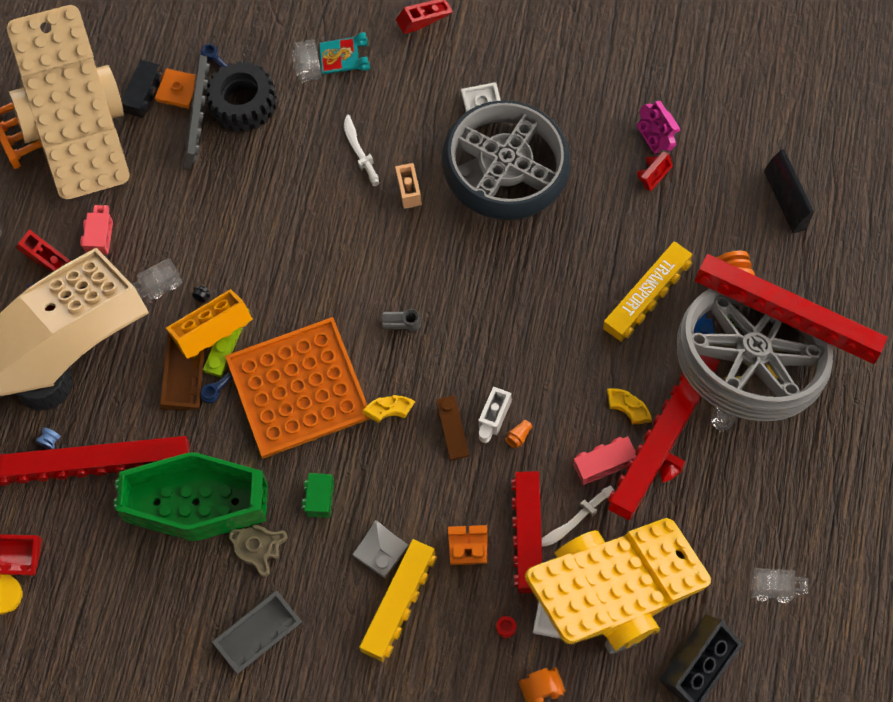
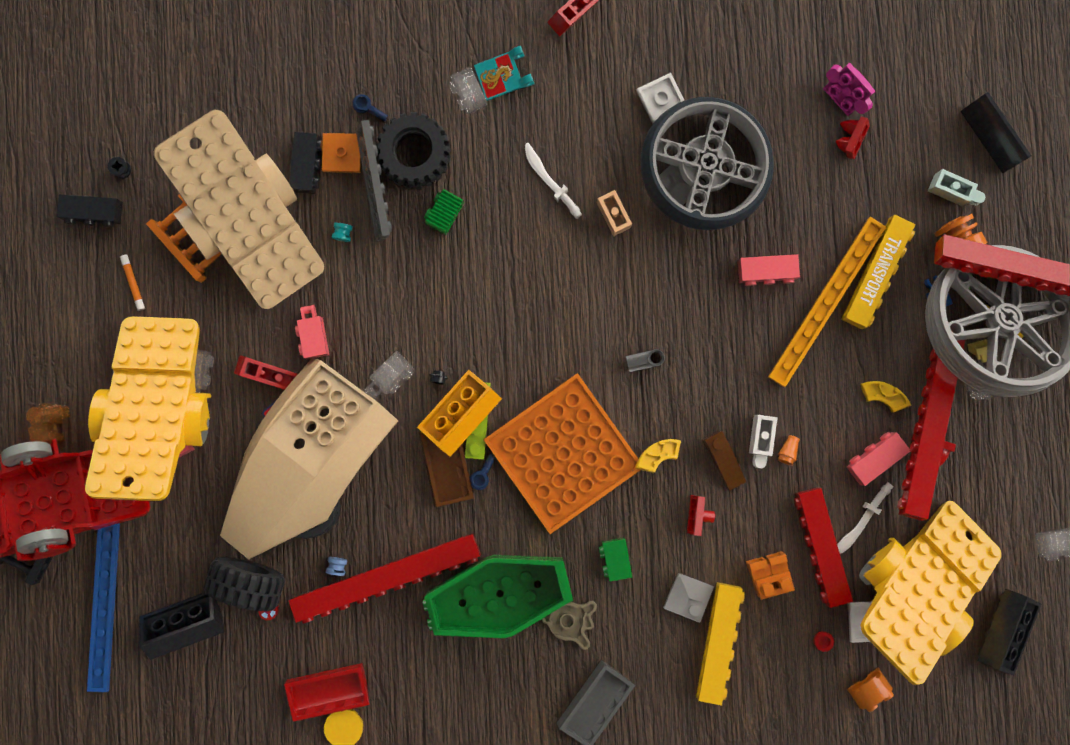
camera: 20 degrees left, 20 degrees up
(155, 151) = (342, 232): none -> teal wheel
(253, 154) = (443, 212): none -> green brick
(412, 473) = (698, 515): none -> red tile
(542, 266) = (768, 269): none -> coral brick
(589, 308) = (827, 302): none -> light orange plate
(739, 232) = (955, 189): none -> light aqua brick

